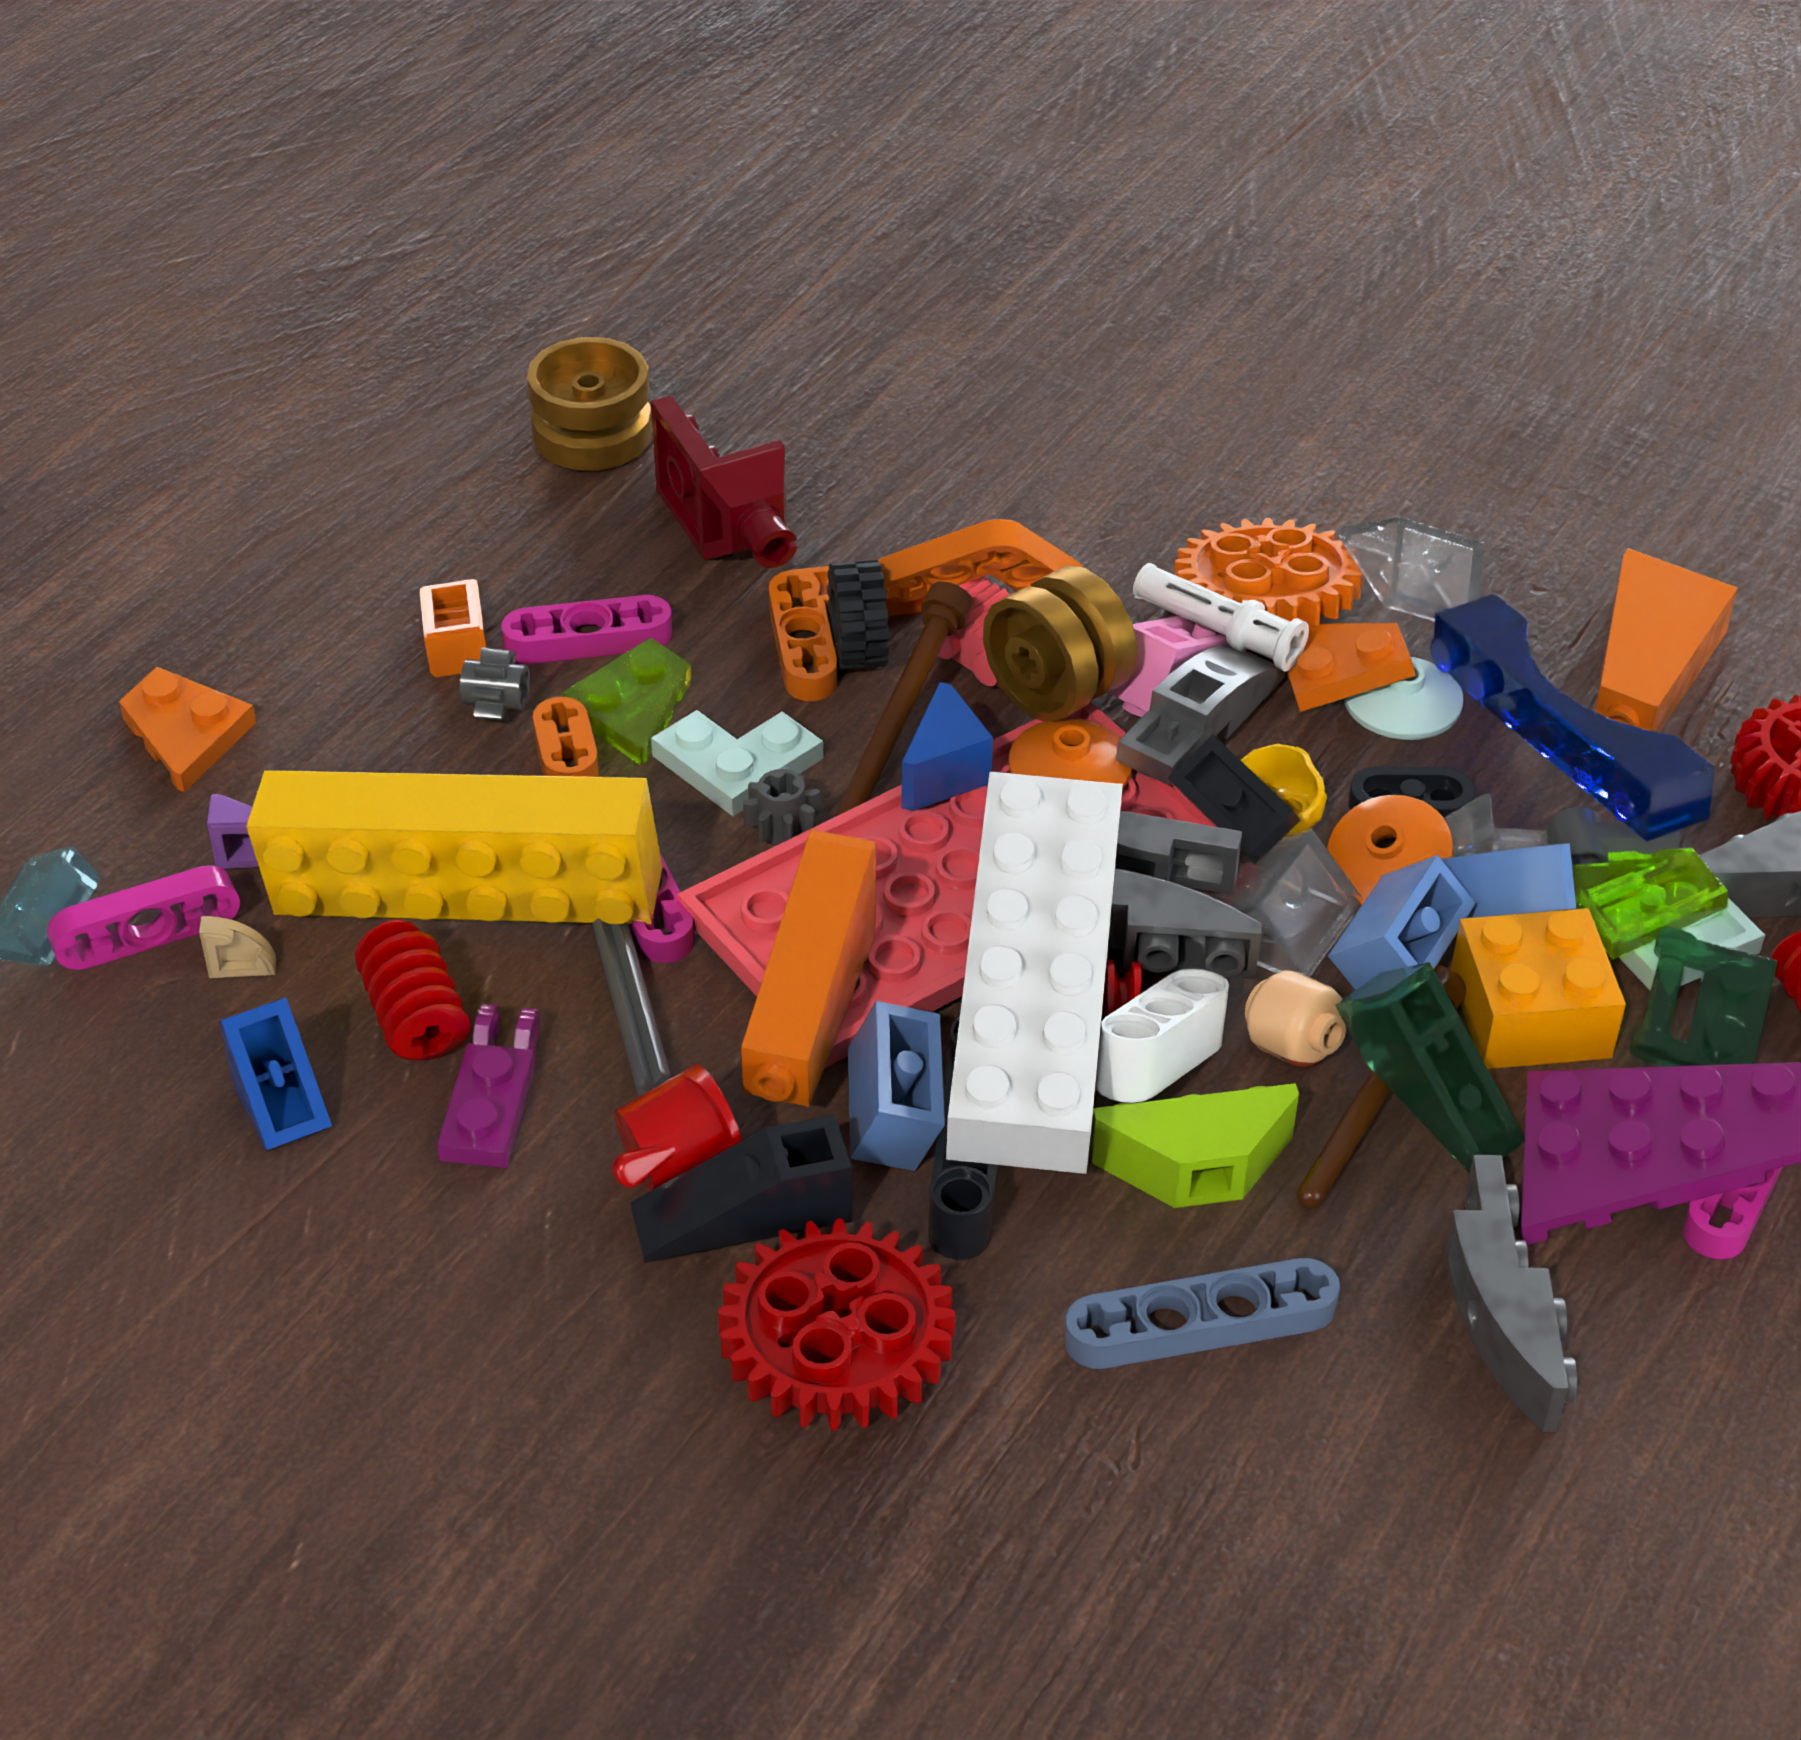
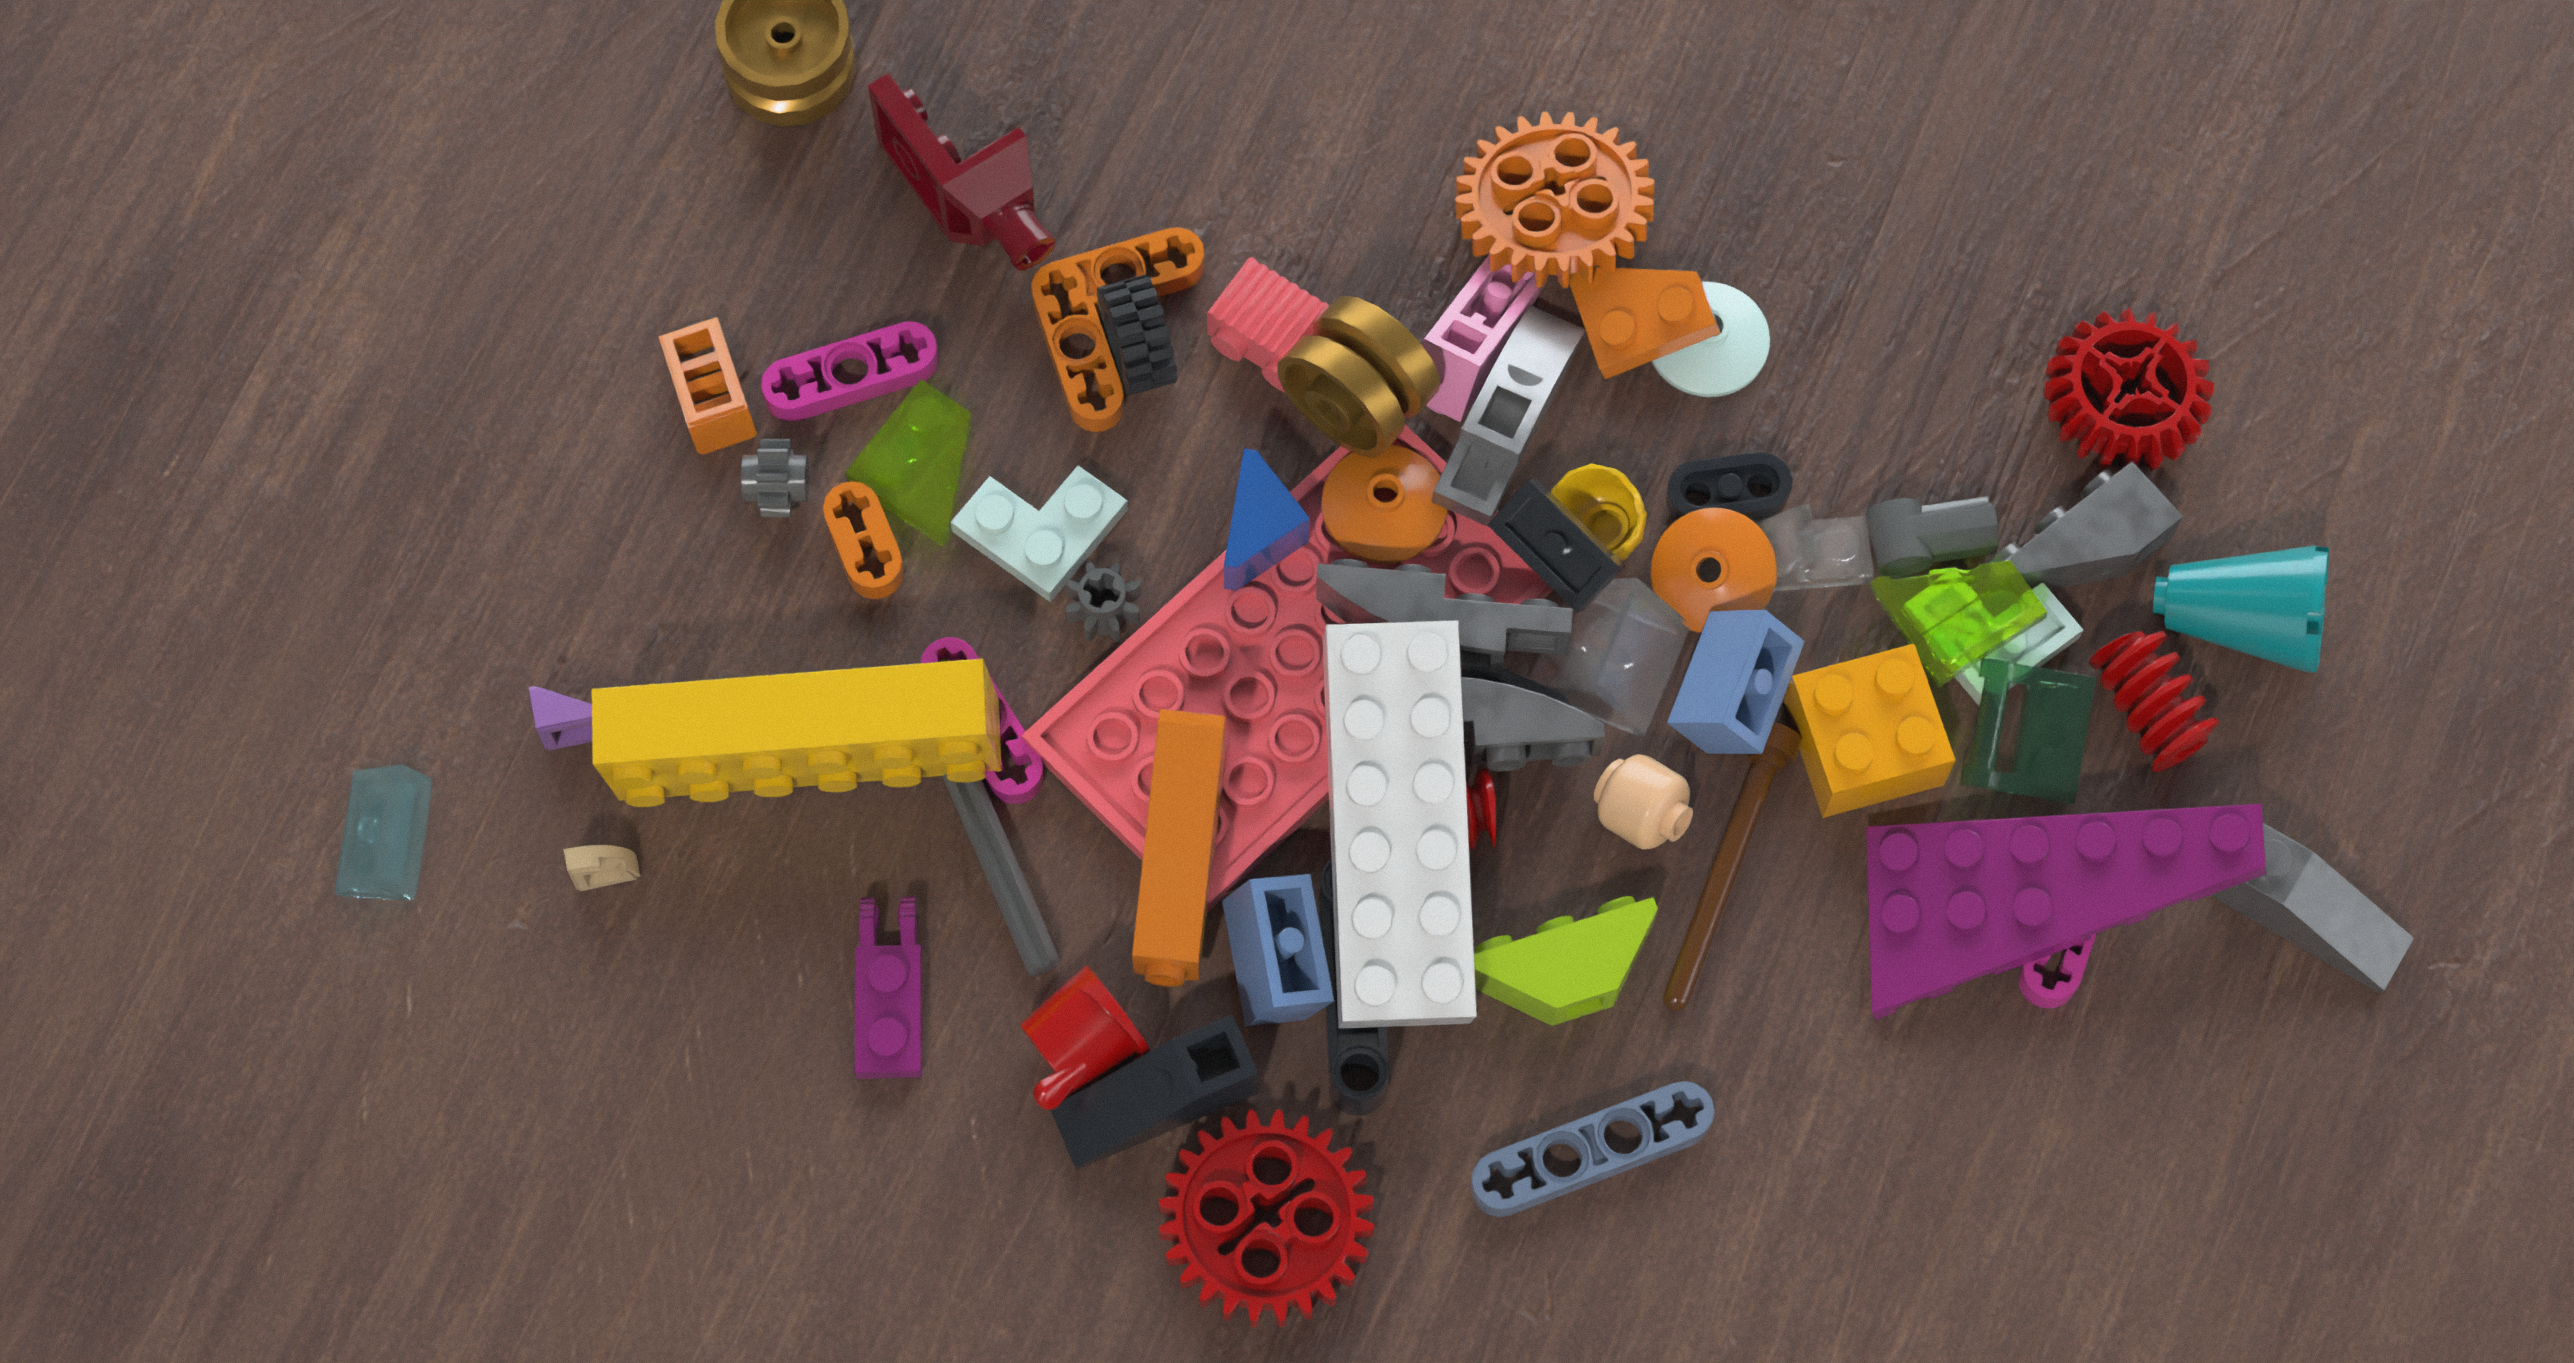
camera: 10 degrees left, 25 degrees up
(119, 907) = (497, 839): dark pink beam -> none
(184, 723) = (459, 565): orange wing -> none
(273, 1074) = (684, 1023): blue slope -> none
(411, 991) = (786, 902): red piece -> none
(944, 612) = (1230, 336): reddish brown piece -> none
(984, 549) = (1256, 258): orange beam -> none
(1161, 1035) = (1522, 854): white beam -> none
(1242, 623) = (1444, 255): white pin -> none
(1416, 564) = (1710, 182): clear slope -> none
(1429, 1061) = (1776, 849): clear green slope -> none
(1505, 1302) = (1867, 1114): flat silver slope -> none
(1517, 880) = (1839, 616): medium blue slope -> none
(1635, 773) = (1953, 459): clear blue arch -> none
(1659, 638) = (1961, 233): orange slope -> none

